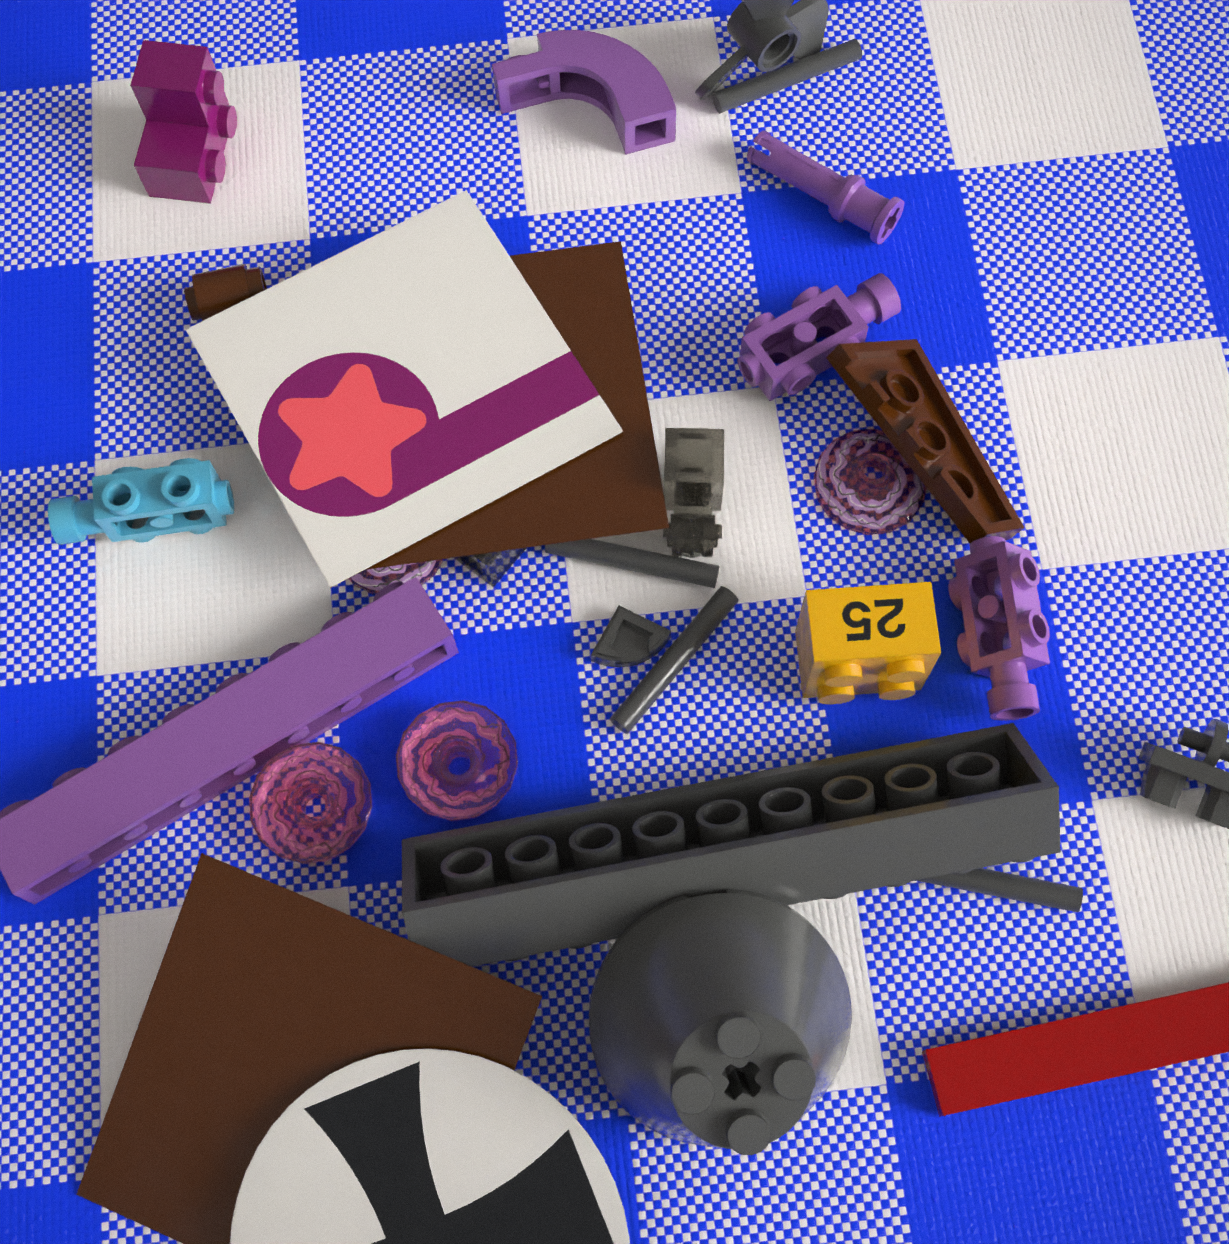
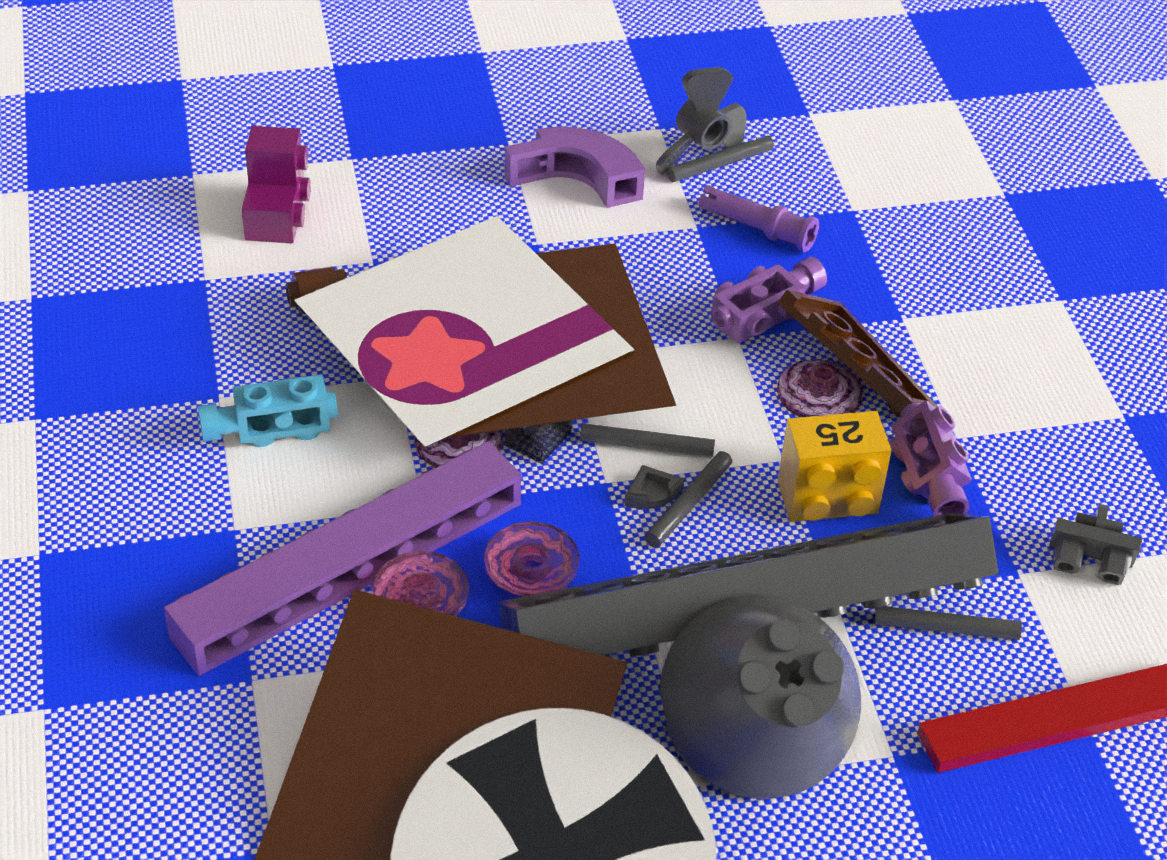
camera: 10 degrees left, 25 degrees down
(693, 489) = (691, 380): clear smoke brick -> none

